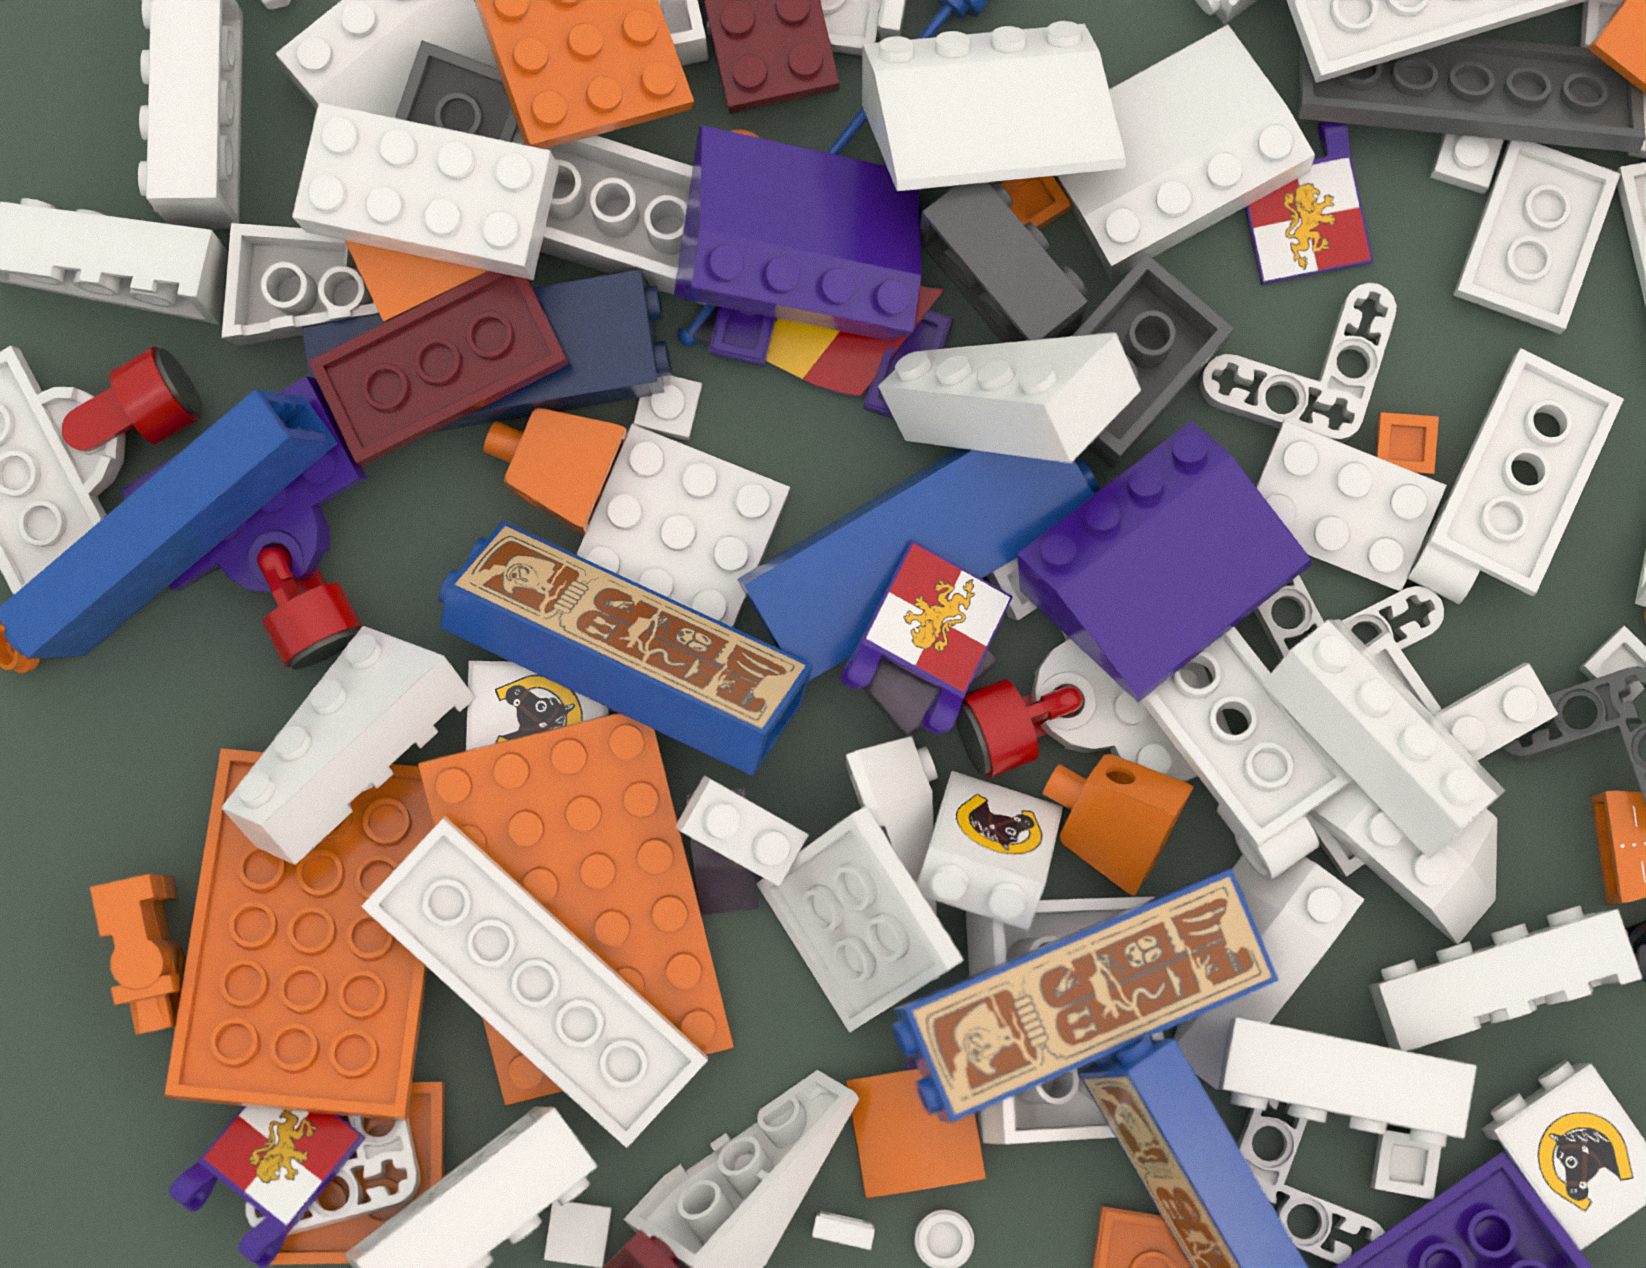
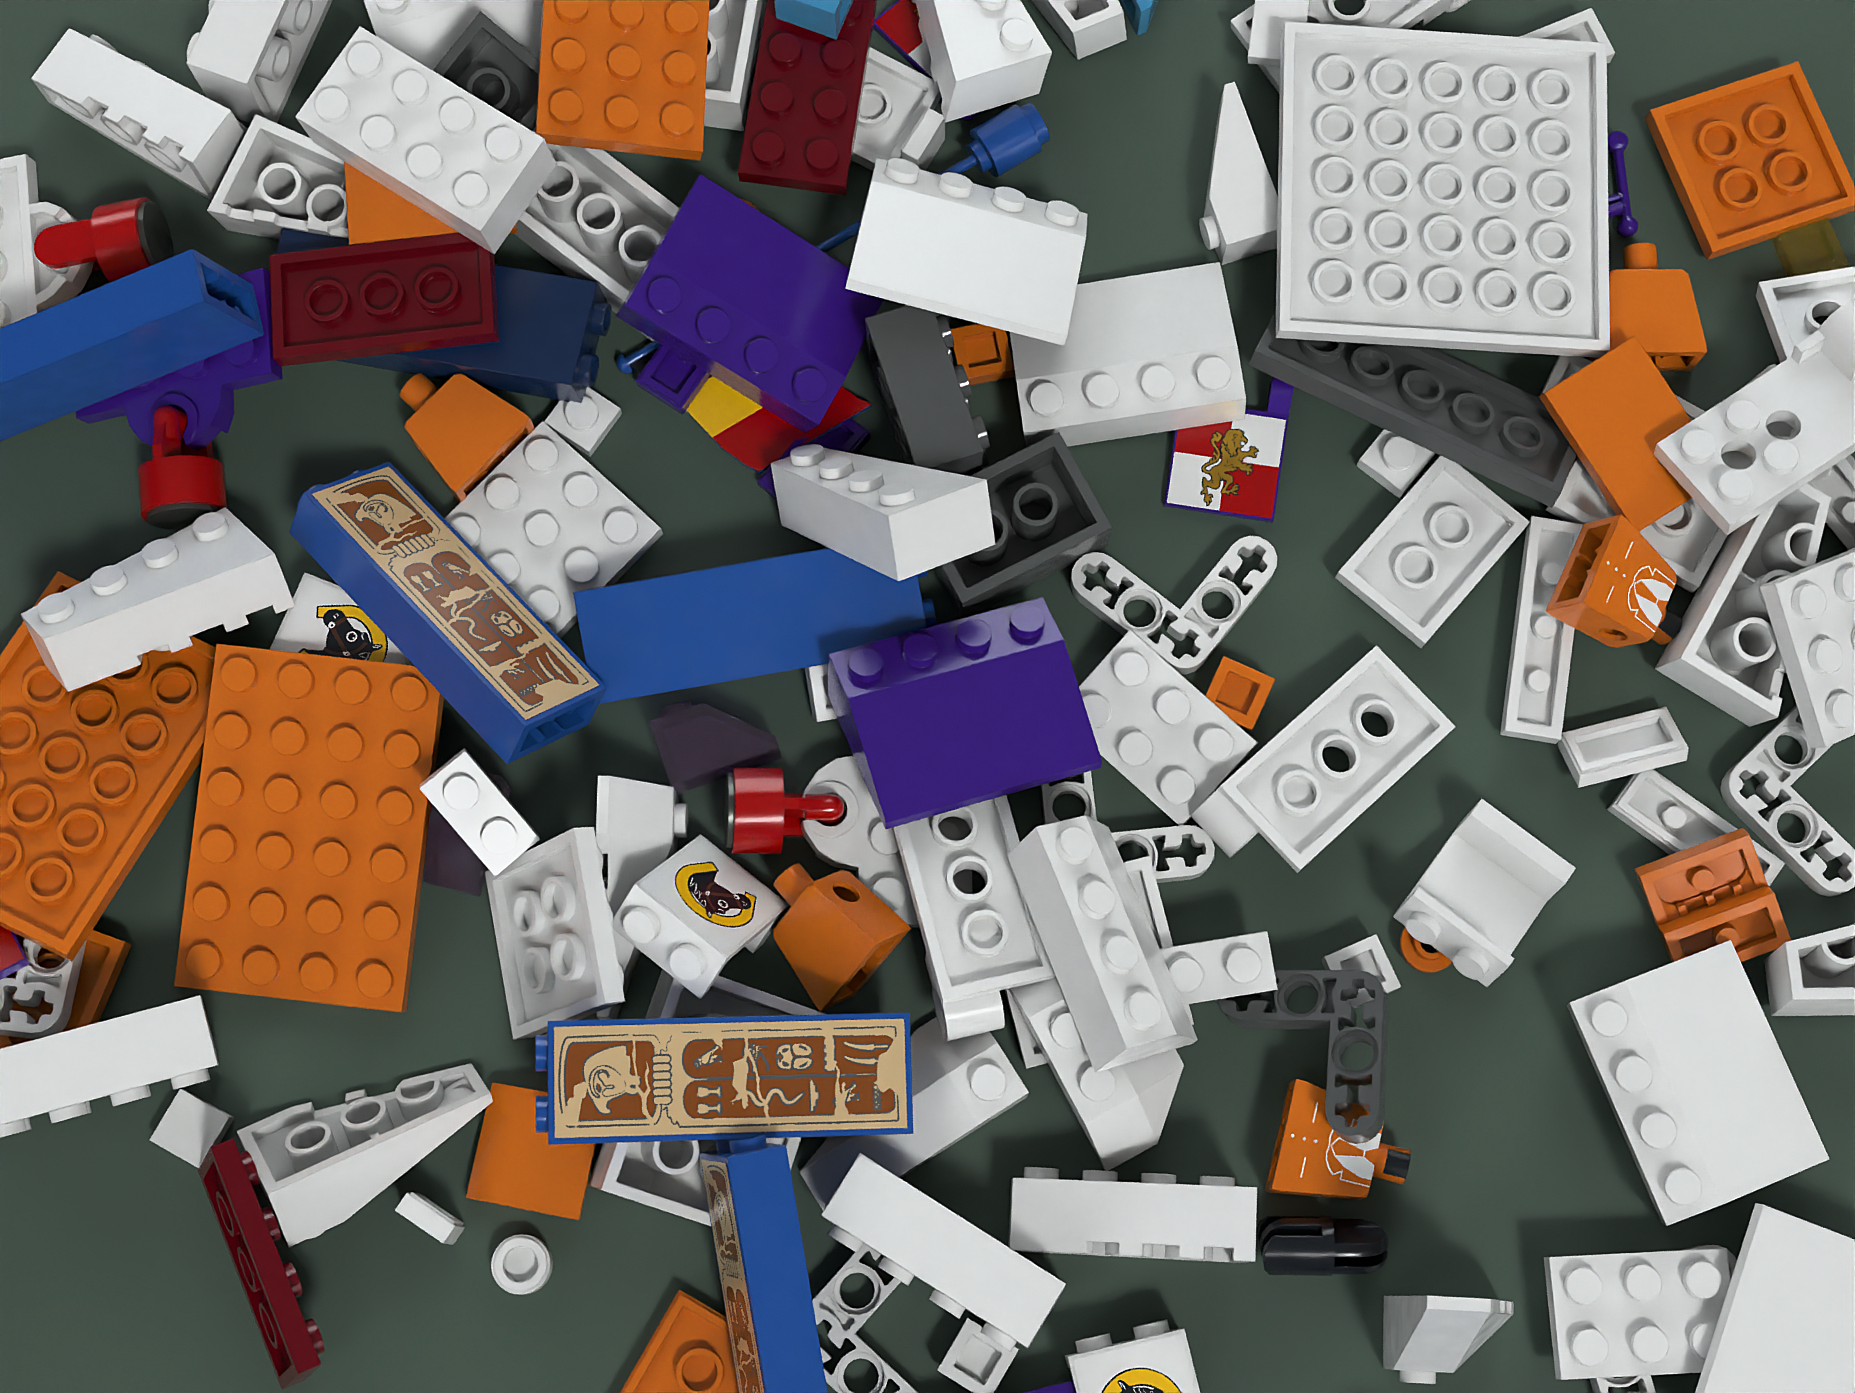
camera: 20 degrees right, 5 degrees down
(535, 982) = (238, 879): white plate -> none
(934, 625) = (730, 692): flag -> none

